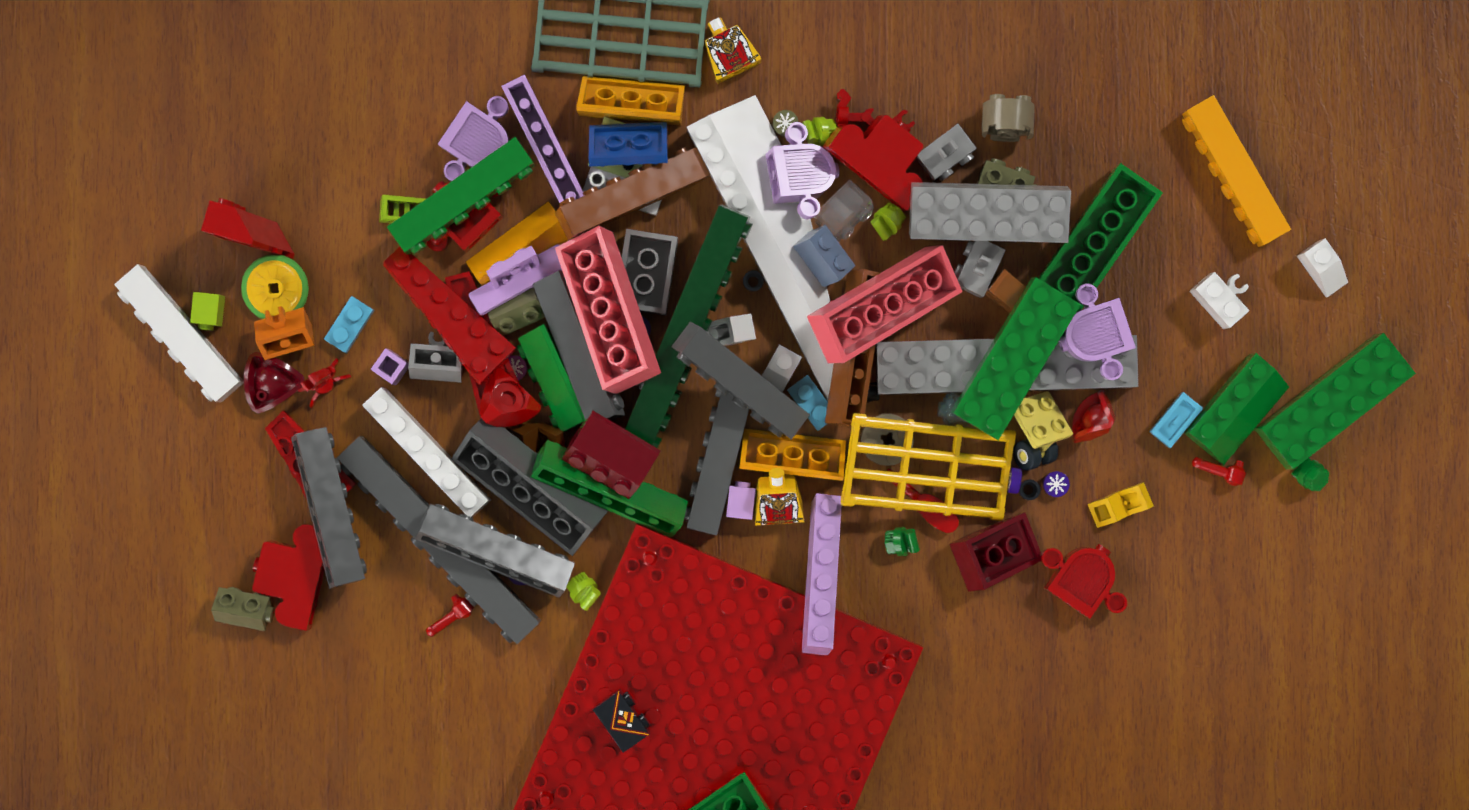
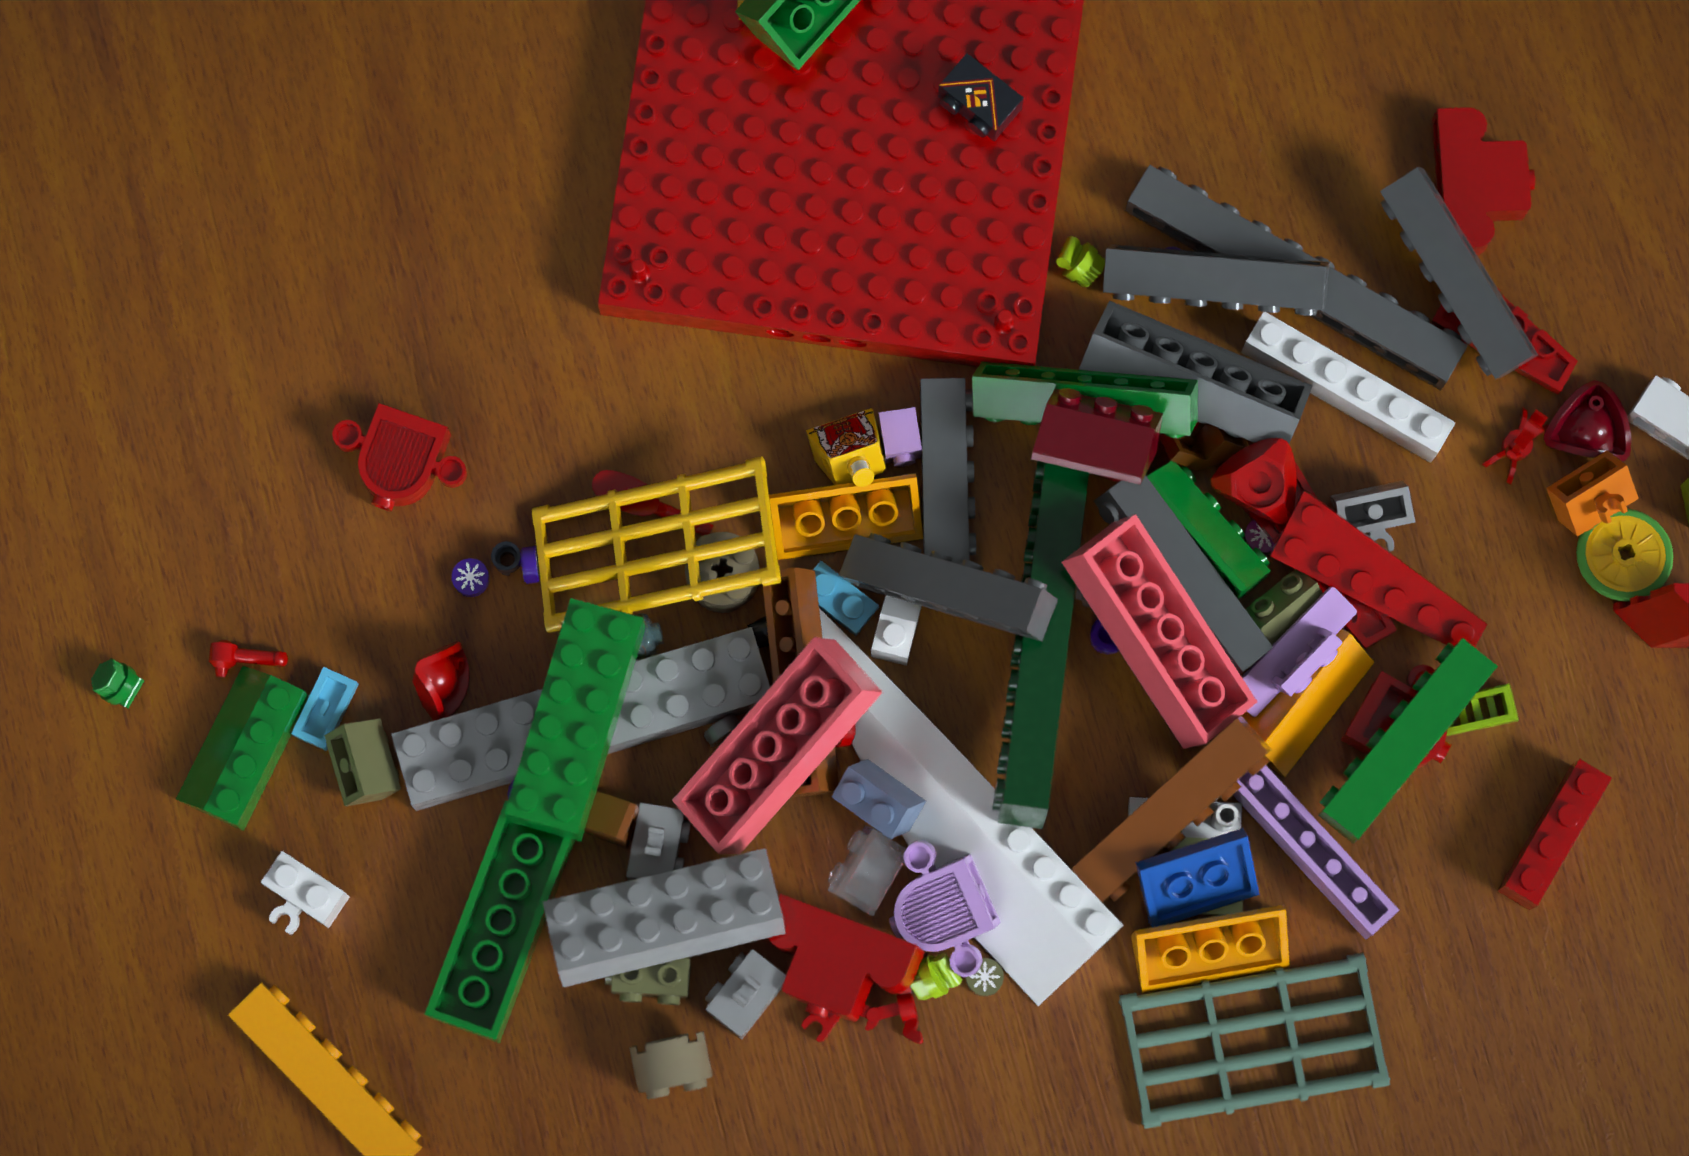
camera: 160 degrees right, 10 degrees down
(242, 608) = (1531, 116): olive brick -> none
(349, 324) = (1507, 533): medium azure plate -> none
(381, 112) = (1554, 834): none -> red brick
(390, 366) = (1433, 487): lavender brick -> none
(460, 609) = (1239, 193): red piece -> none
(474, 135) = (1413, 834): lavender piece -> none
(650, 268) = (1117, 715): light grey brick -> none
(729, 51) = (1093, 1055): torso -> none
(733, 329) = (980, 661): white slope -> none
(756, 274) = (970, 731): black hose -> none
(822, 574) = (763, 360): lavender brick -> none
(888, 220) = (802, 875): lime piece -> none
(901, 541) = (665, 440): green piece -> none
(914, 333) = (720, 730): none -> flat silver tile
(996, 552) = (529, 461): dark red slope -> none
(1043, 428) = (511, 644): light yellow plate -> none
(1098, 332) = (468, 786): lavender piece -> none
(1120, 505) = (375, 572): yellow slope -> none
(1160, 375) = (362, 762): none -> olive brick
(1324, 267) = (167, 979): white slope -> none
(1334, 401) = (107, 793): green brick -> none

